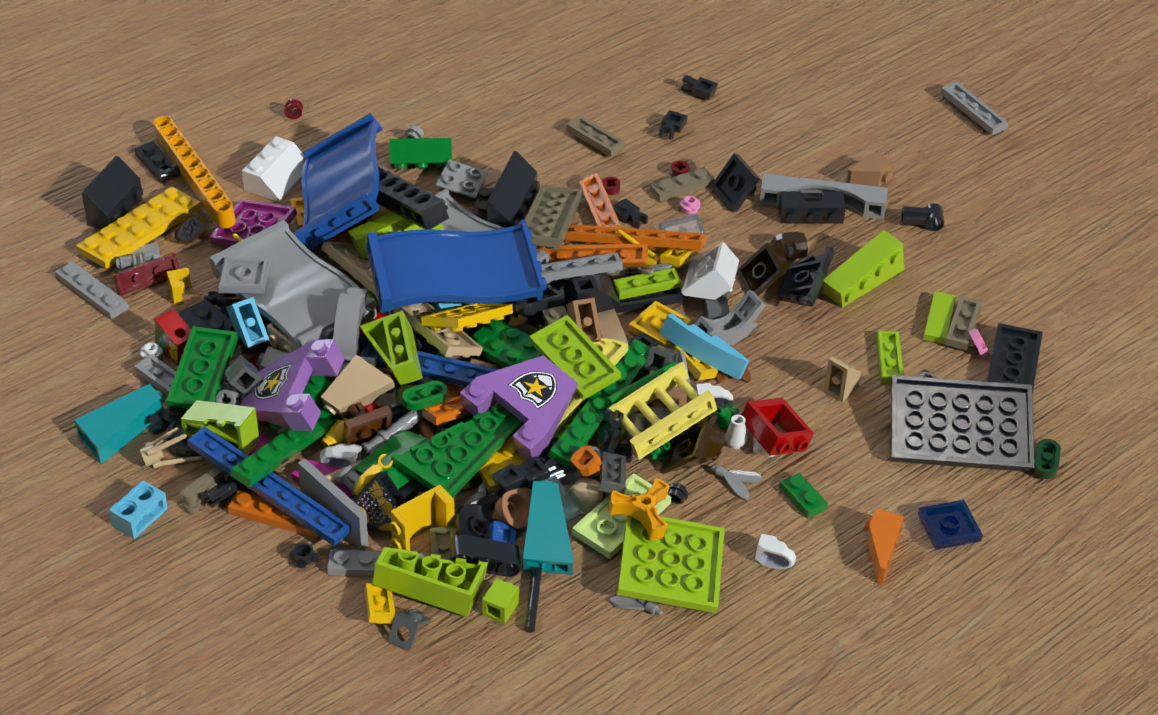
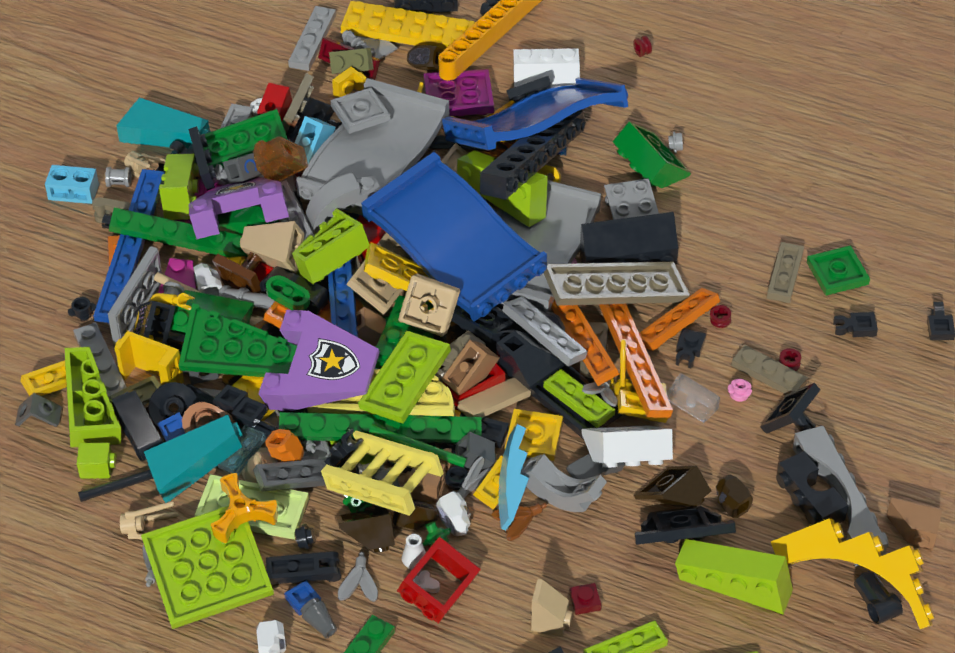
camera: 65 degrees right, 5 degrees up
(156, 270) = (357, 58): none -> olive plate
(157, 473) = (118, 176): none -> light grey bush
(185, 311) = (298, 103): none -> dark tan plate
(191, 392) = (203, 158): none -> black plate
(268, 342) = (279, 158): none -> clear orange torso
(291, 182) = (520, 92): none -> black plate
(514, 311) = (416, 312): none -> tan brick
(590, 597) = (134, 521): none -> tan plant
(613, 111) = (838, 270): none -> green plate
(708, 503) = (303, 567): none -> black plate
(734, 519) = (300, 595): none -> blue tile
(763, 513) = (317, 616): none -> dark grey cone
(841, 355) = (585, 598): none -> dark red plate
(874, 210) = (896, 567): none -> yellow arch

